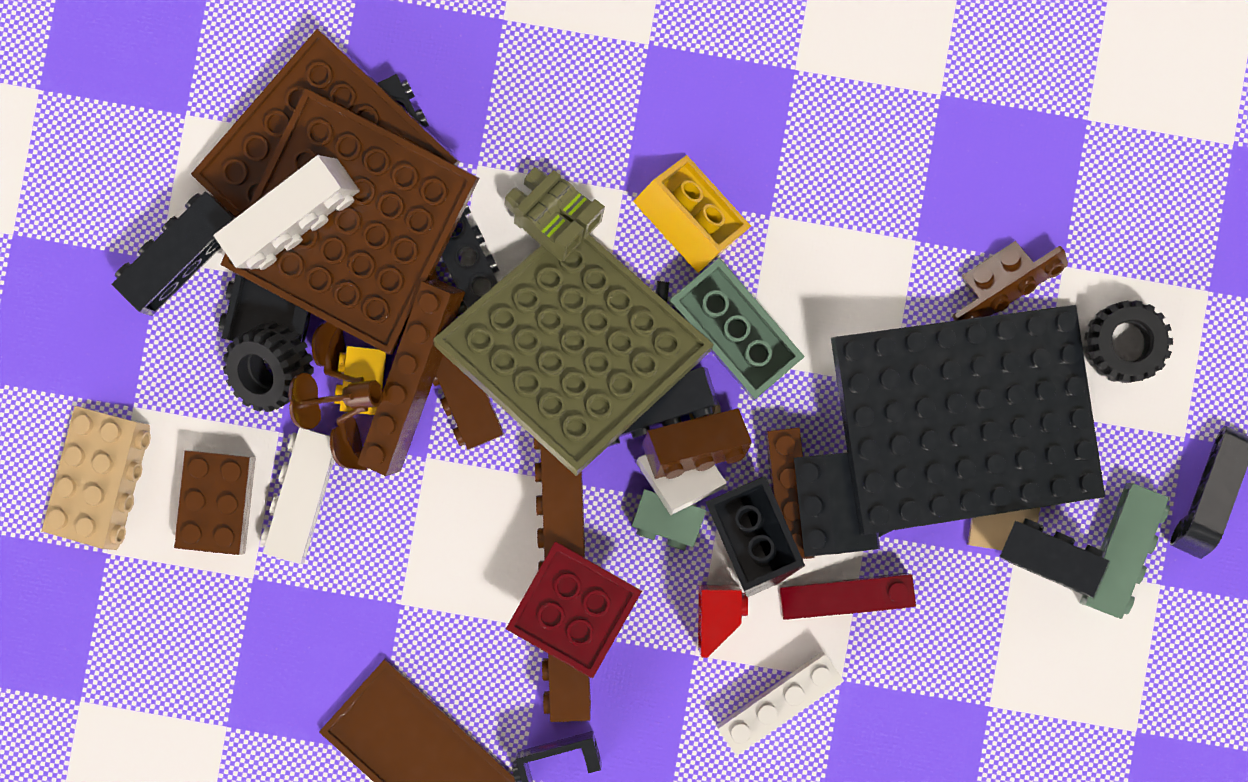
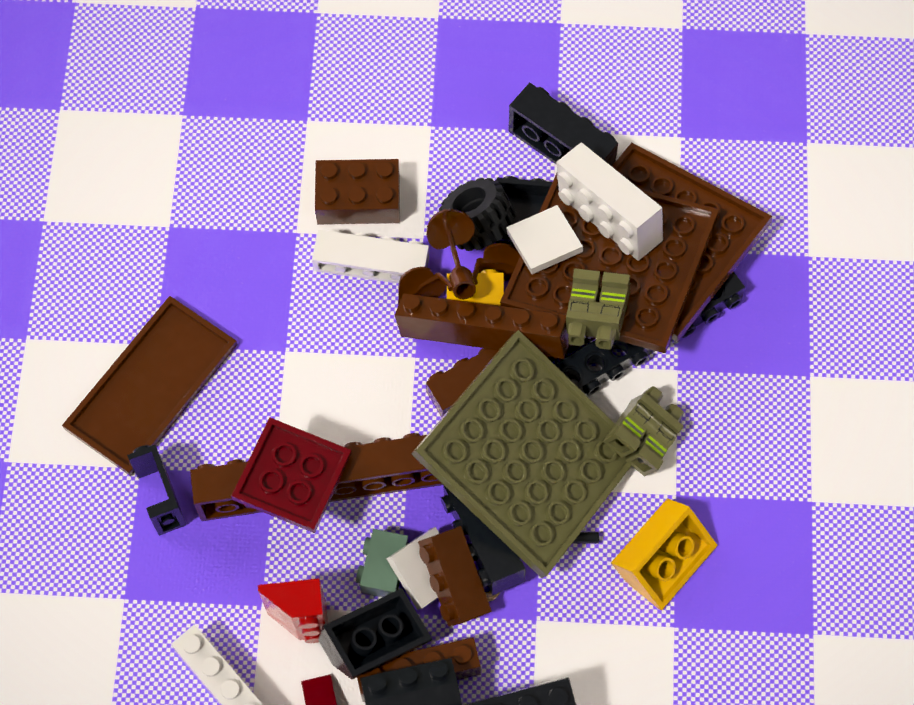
camera: 85 degrees right, 20 degrees down
(96, 478) = (367, 104): tan bracket -> none
(317, 293) = (544, 239): none -> white tile
(432, 249) = (595, 318): none -> olive hips
(739, 327) = (564, 602): sand green brick -> none

